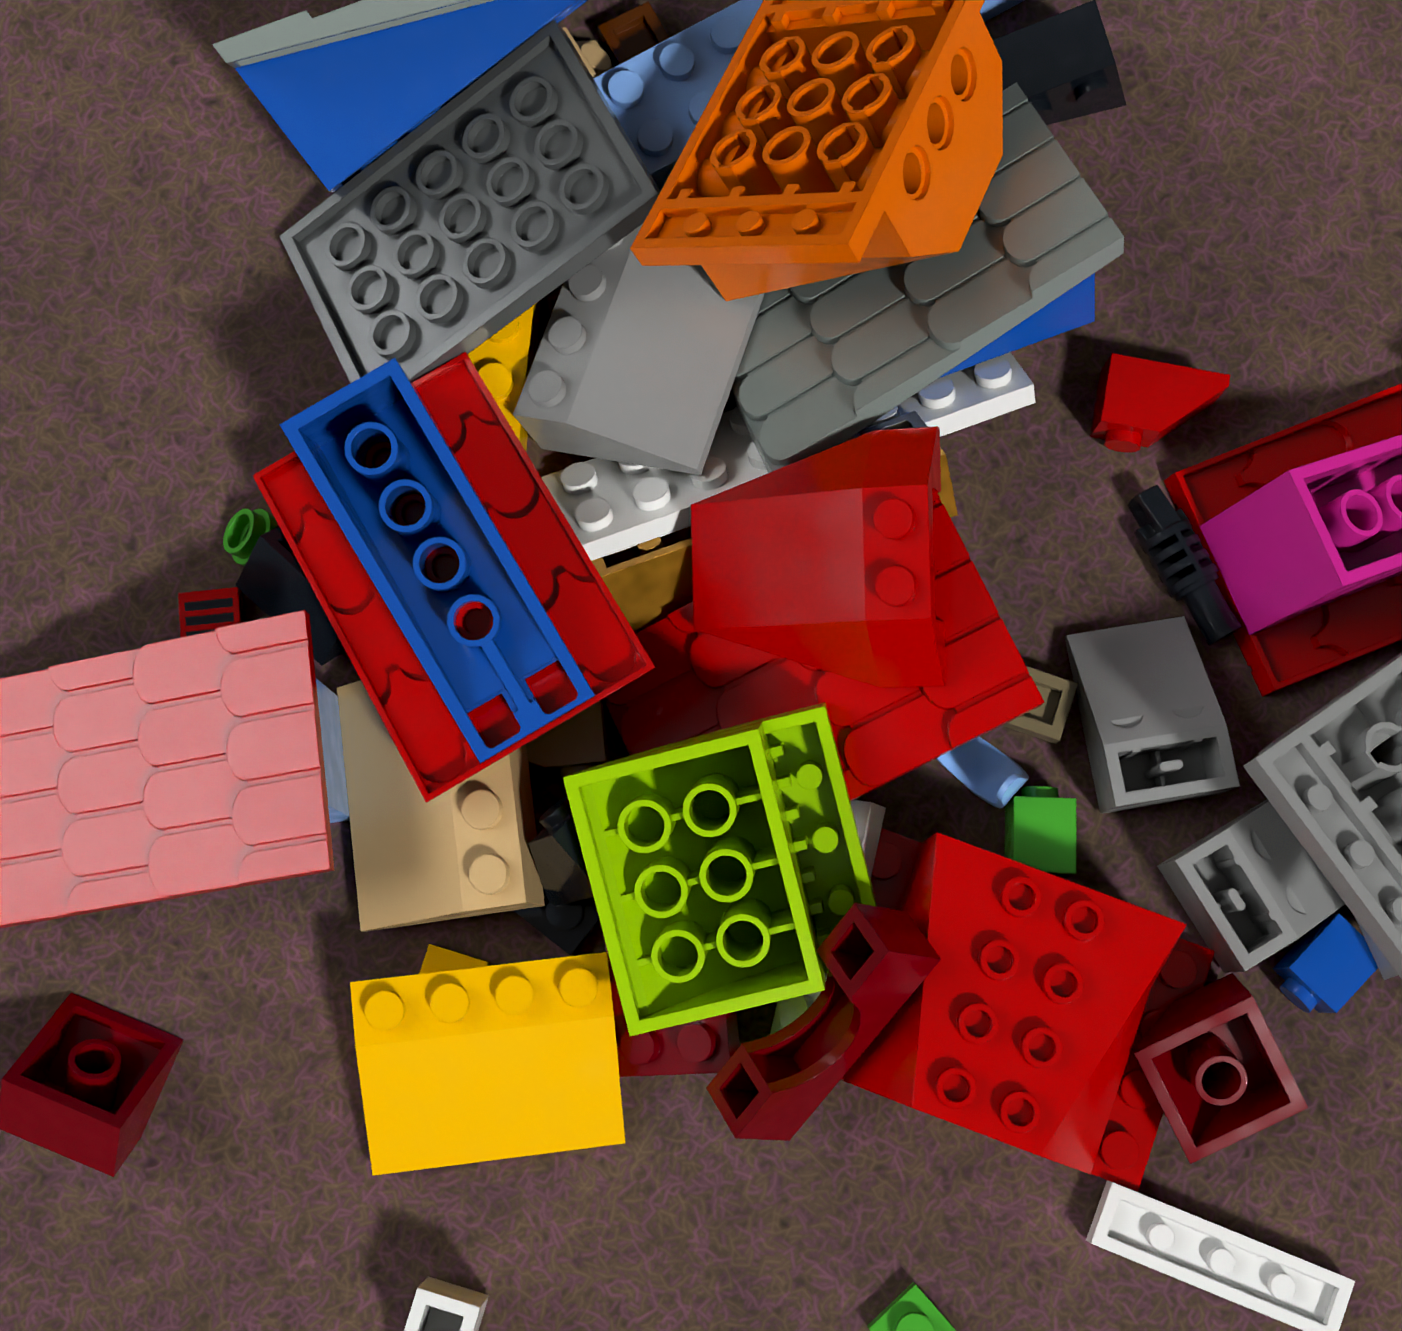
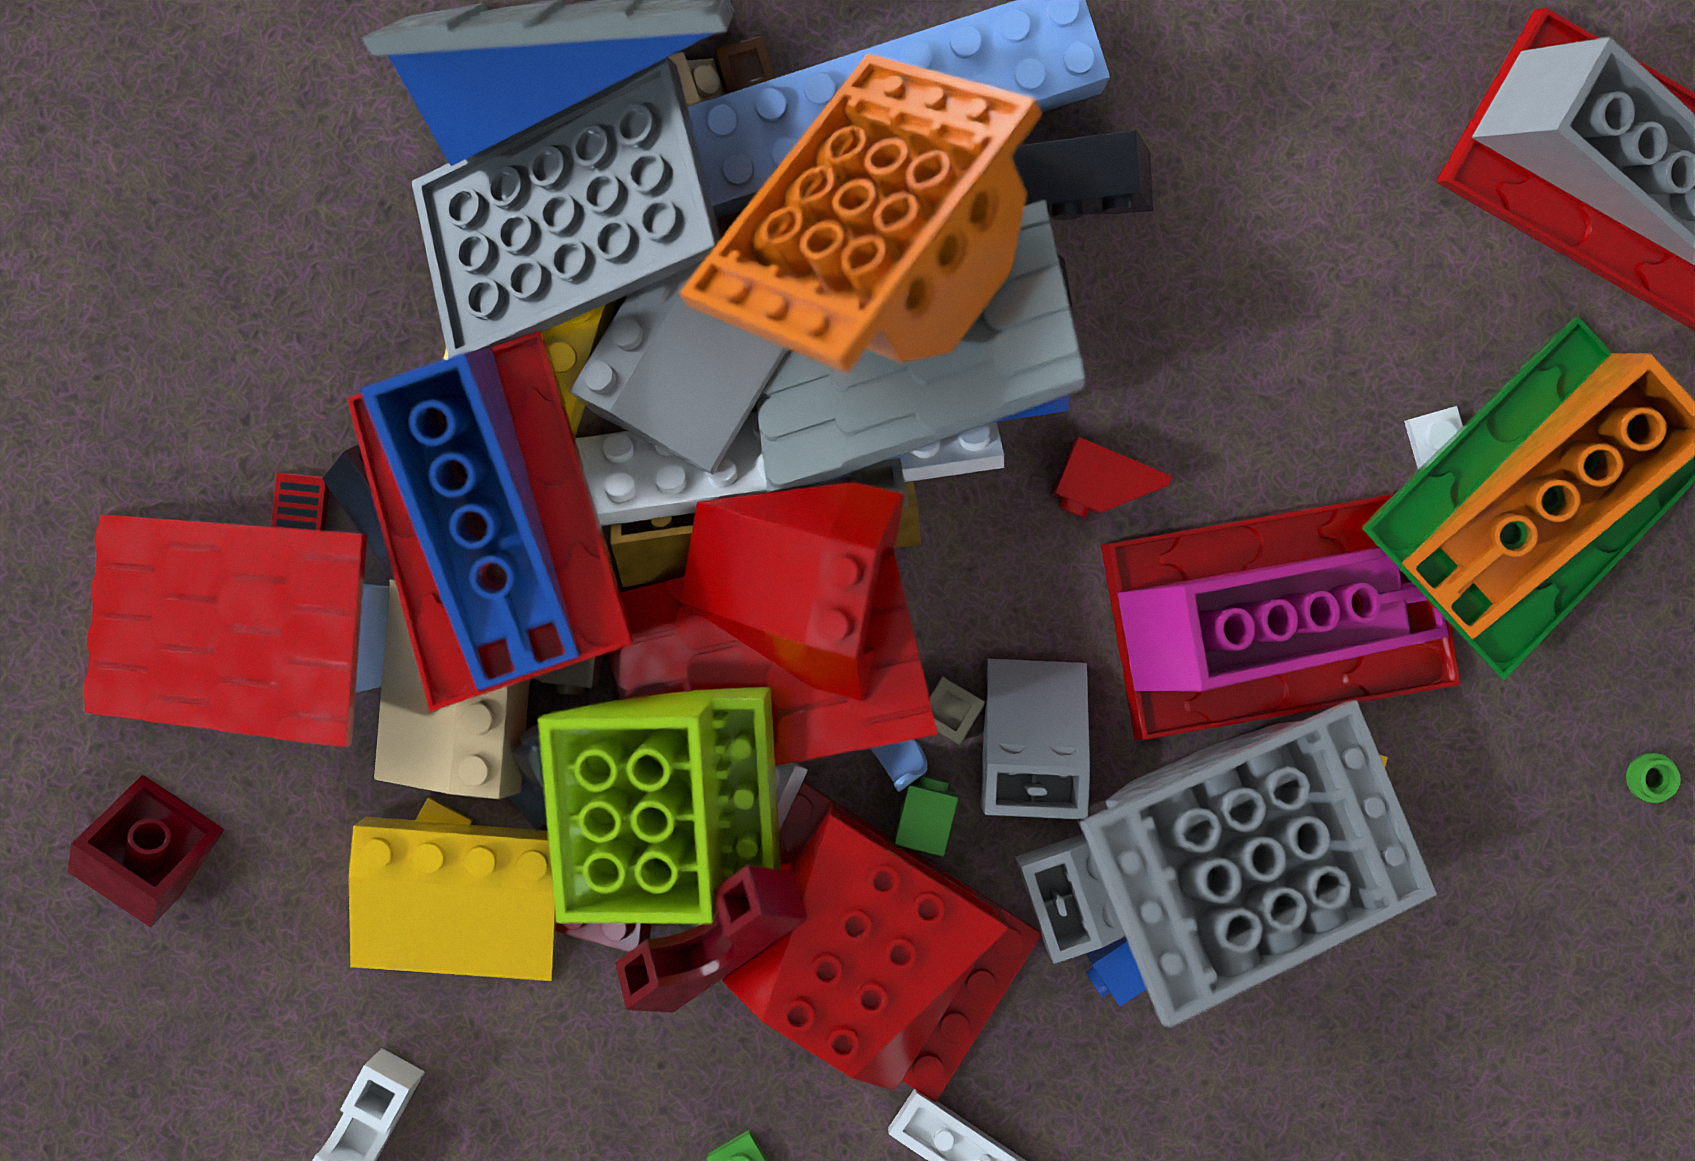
camera: 10 degrees right, 10 degrees up
(244, 532) = (338, 436): bright green plate -> none
(1182, 563) = (1096, 620): black hinge -> none
(1217, 1069) = (1014, 1029): dark red slope -> none

